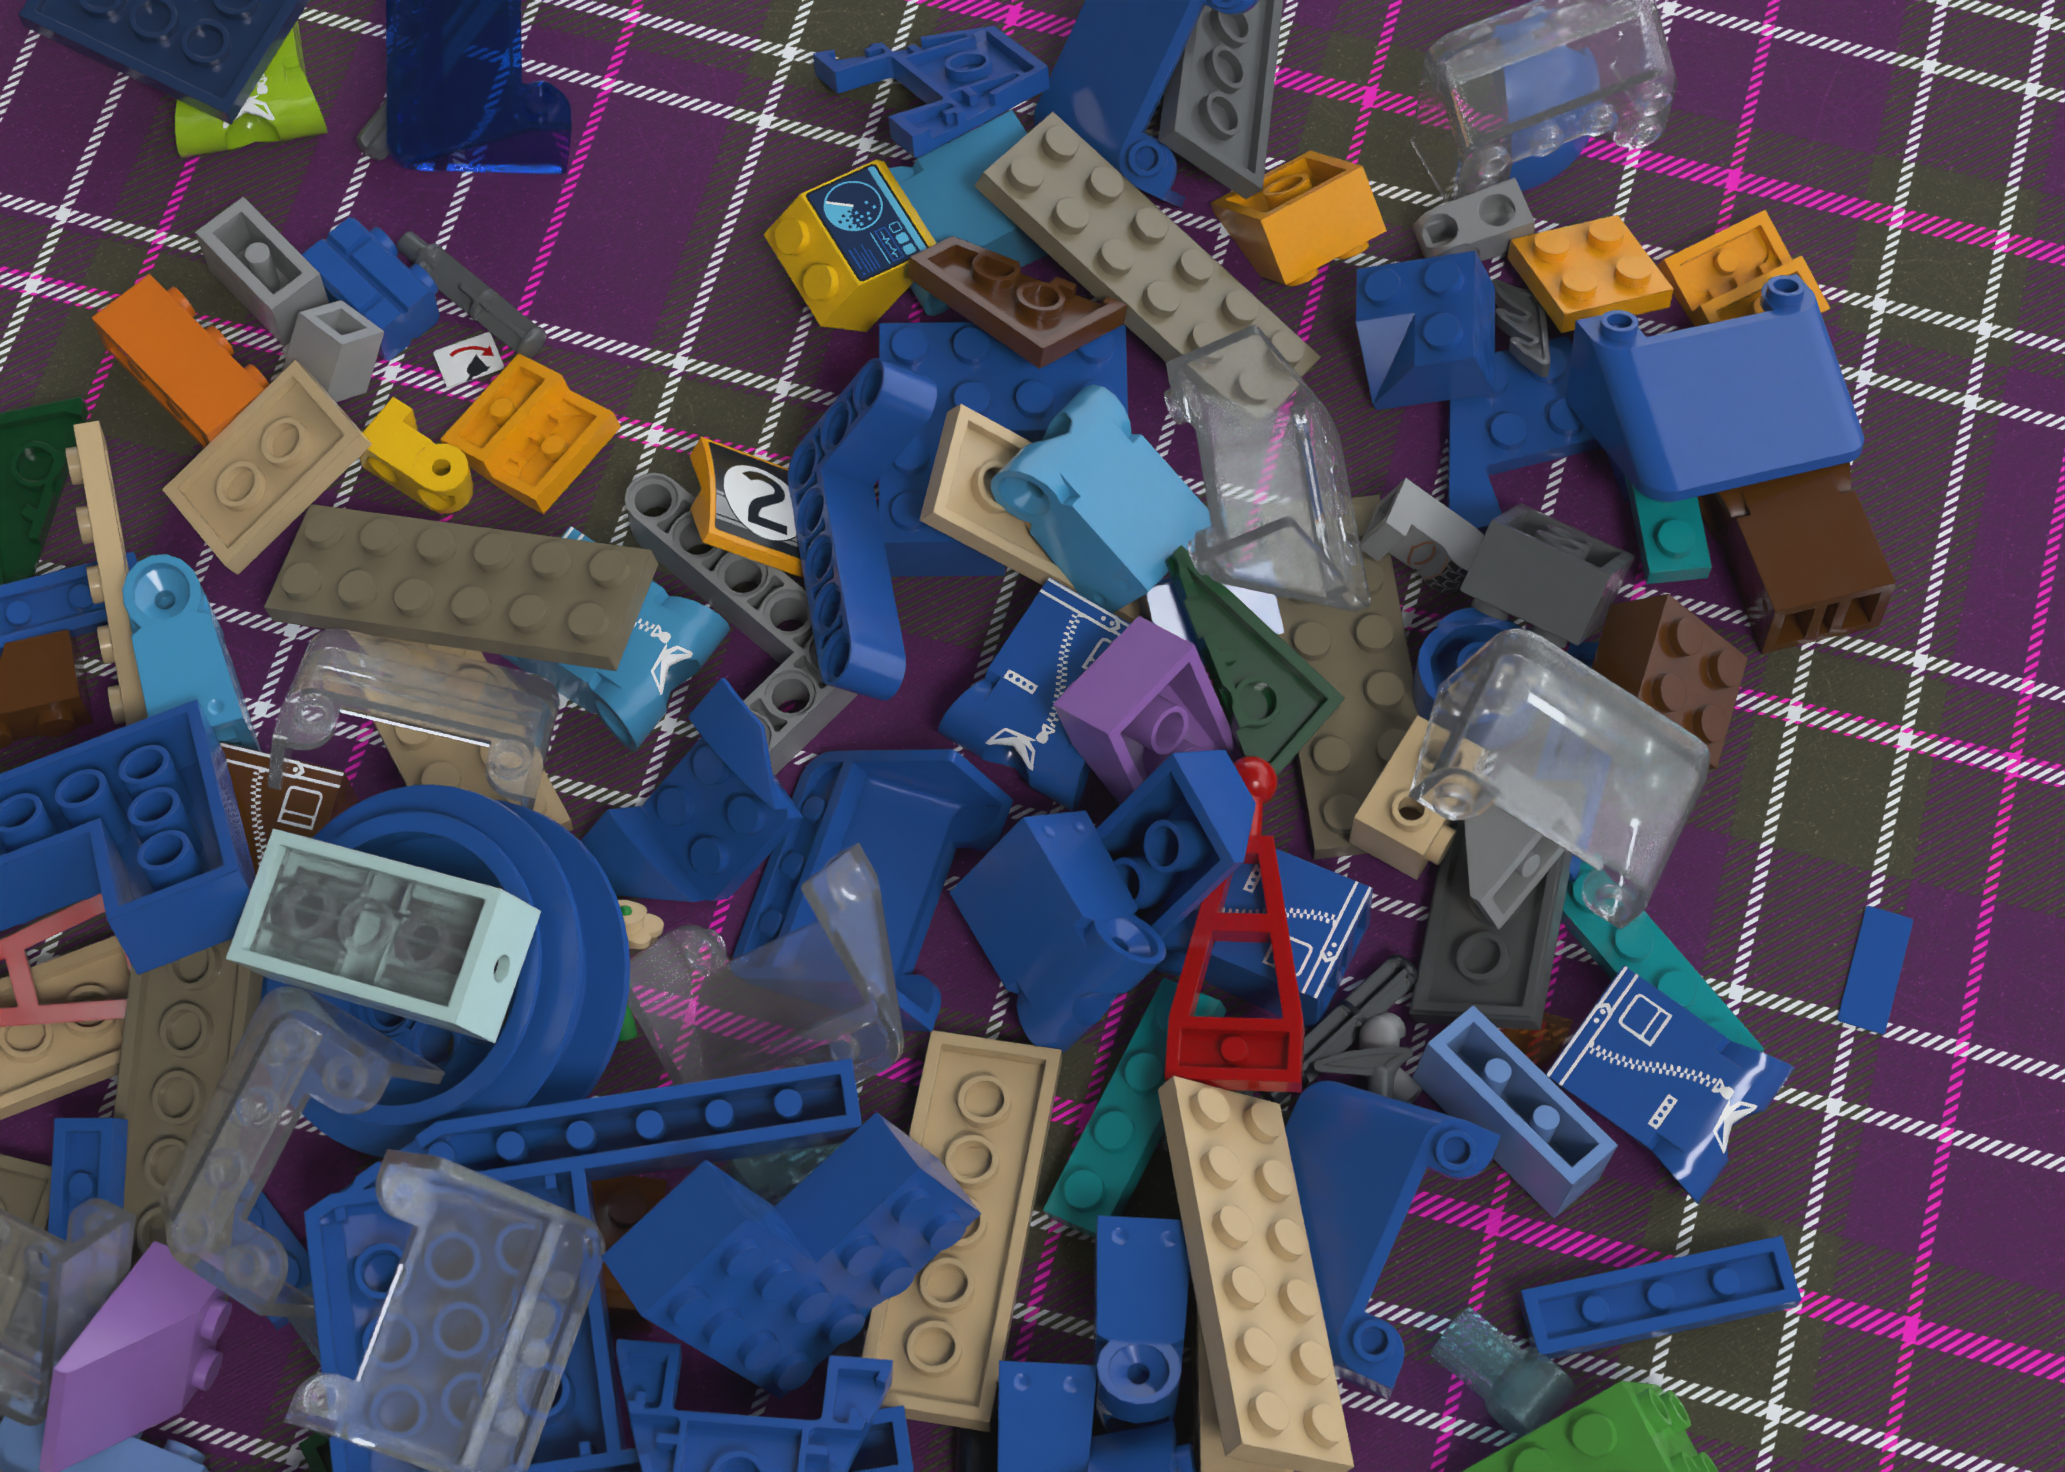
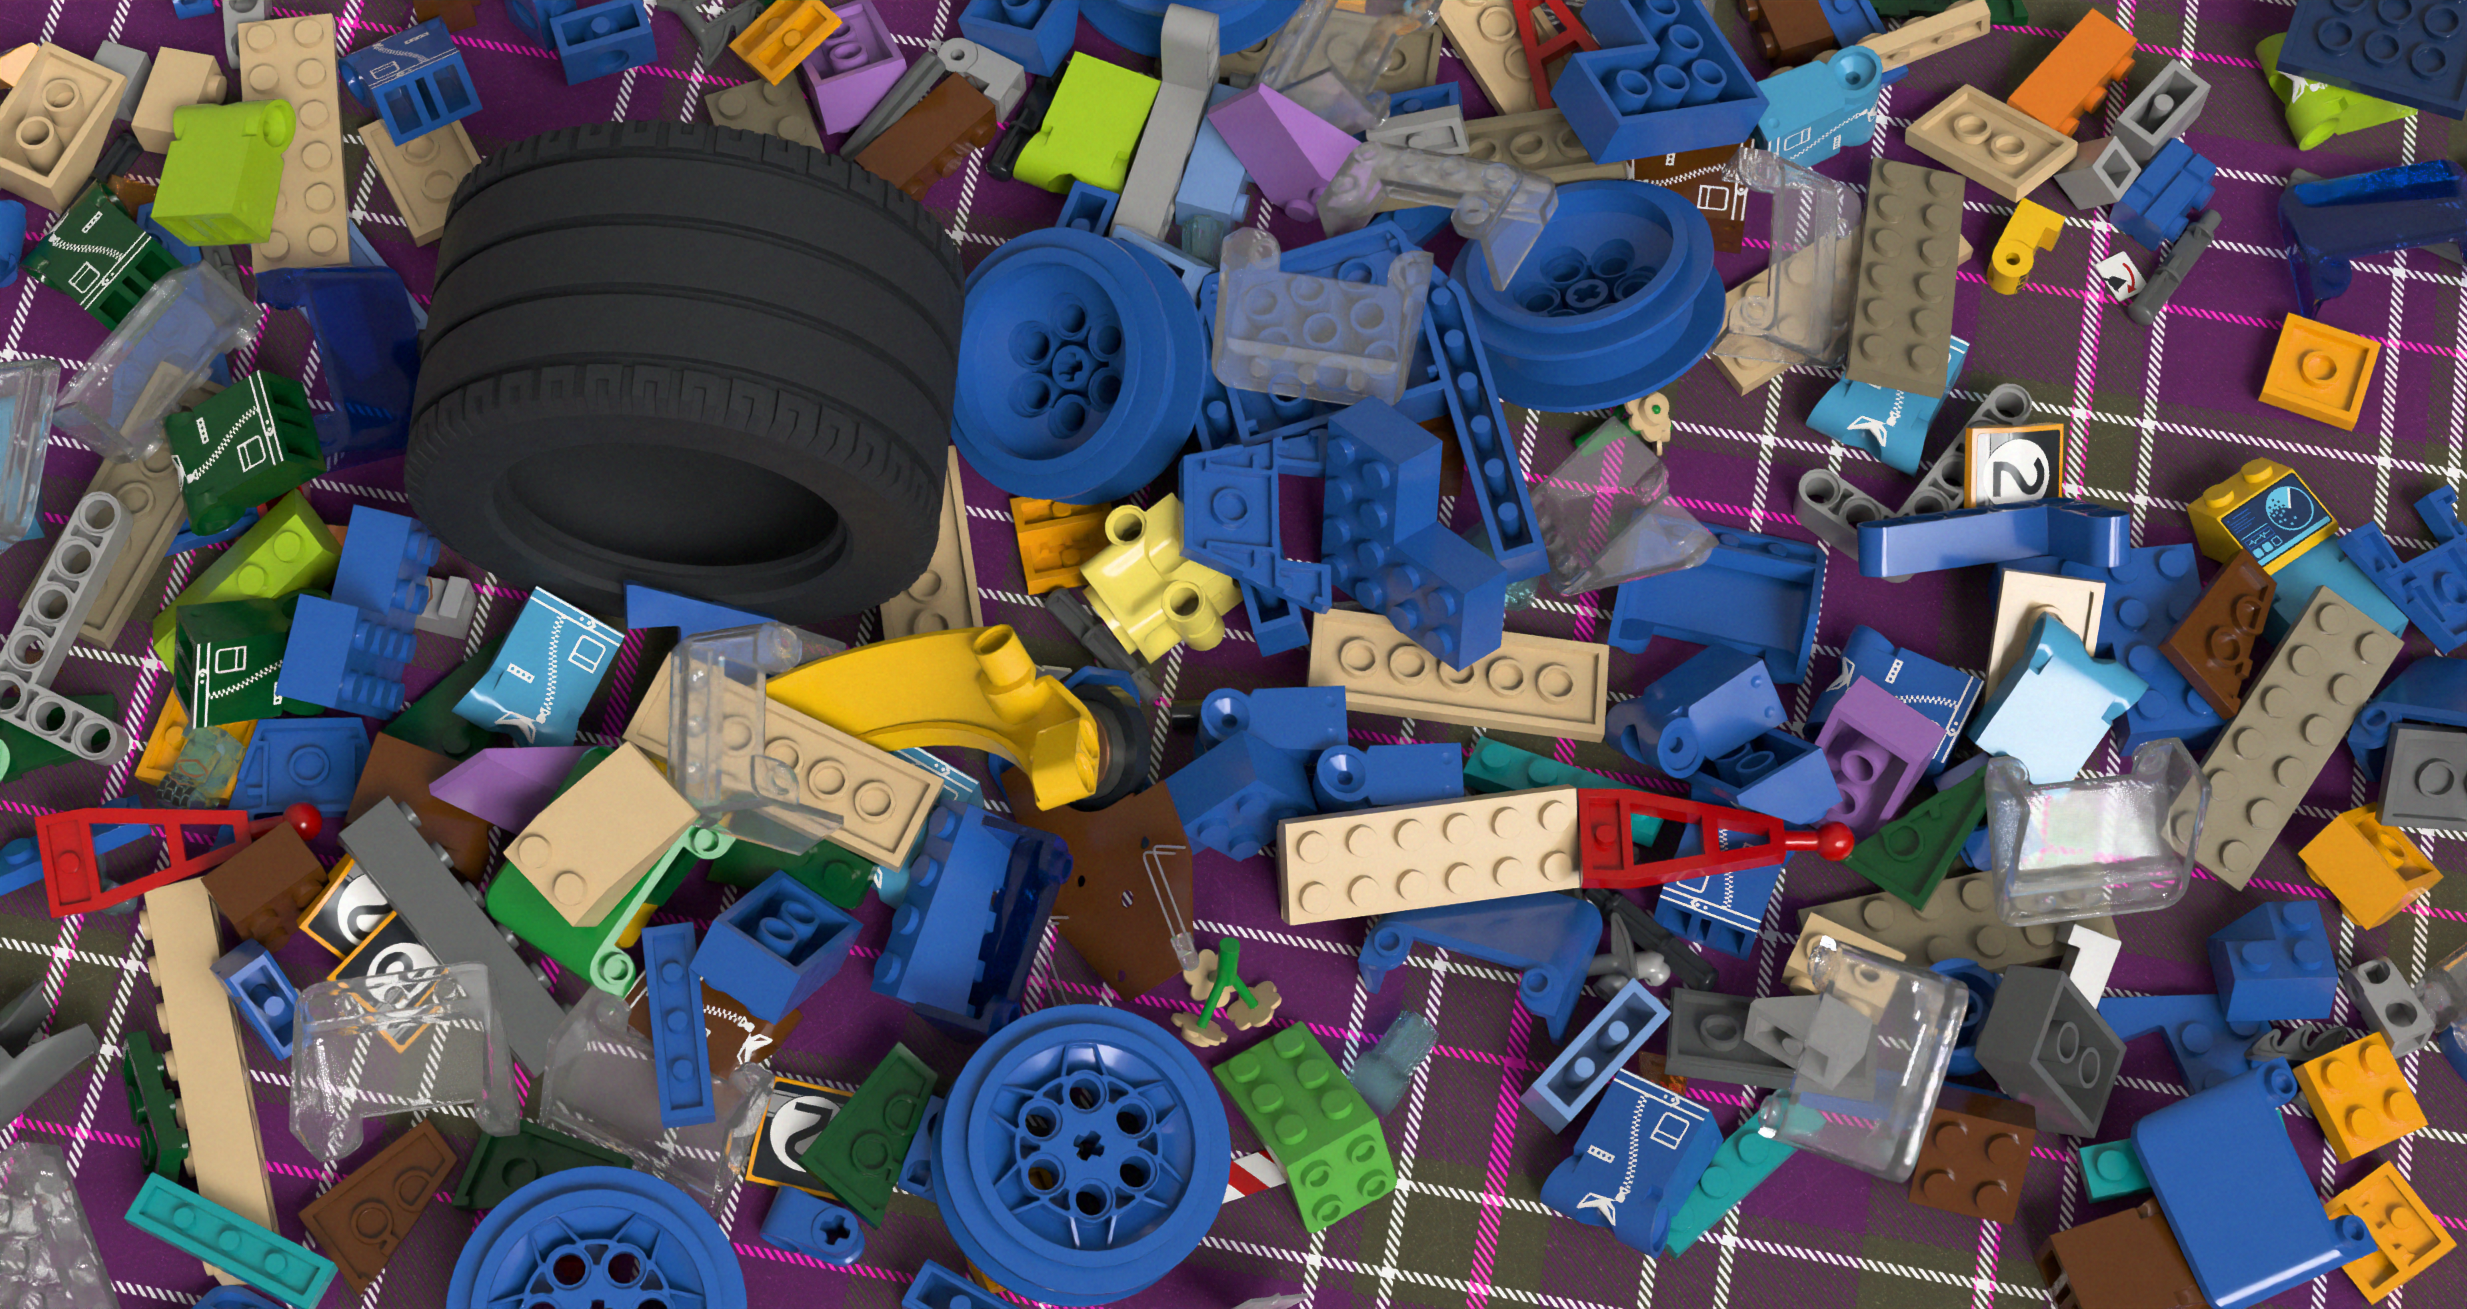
camera: 85 degrees right, 0 degrees up
(139, 1169) = (1431, 130): none -> light grey plate
(384, 934) = (1587, 226): brick -> none
(531, 433) = (2062, 324): light orange slope -> none
(644, 161) = (2319, 372): none -> light orange plate
(706, 819) = (1749, 474): blue piece -> none
(1659, 1298) = (1463, 1178): blue plate -> none

